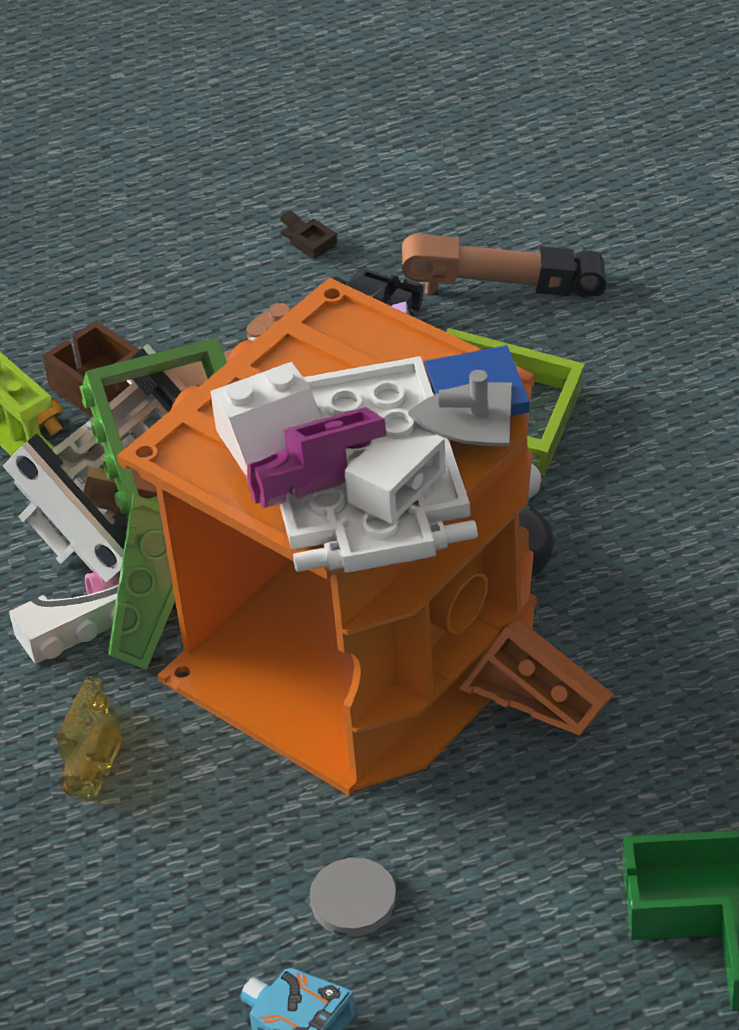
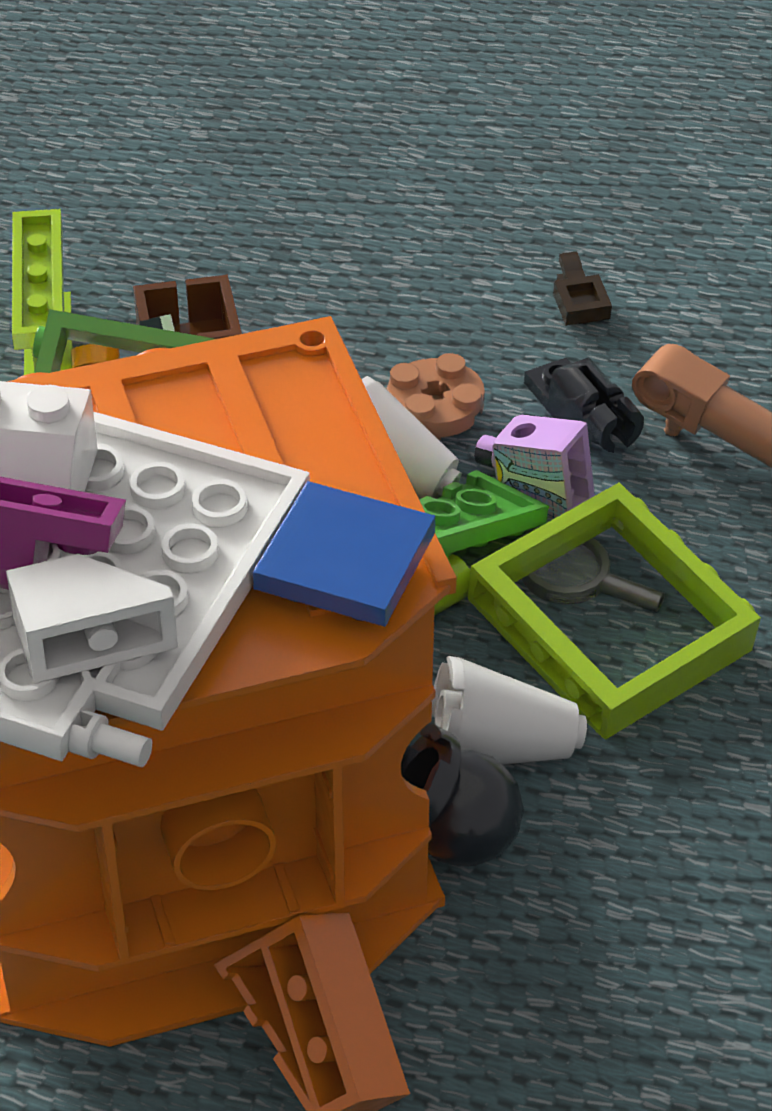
camera: 30 degrees right, 0 degrees up
(469, 413) = (288, 583): light grey shield -> none

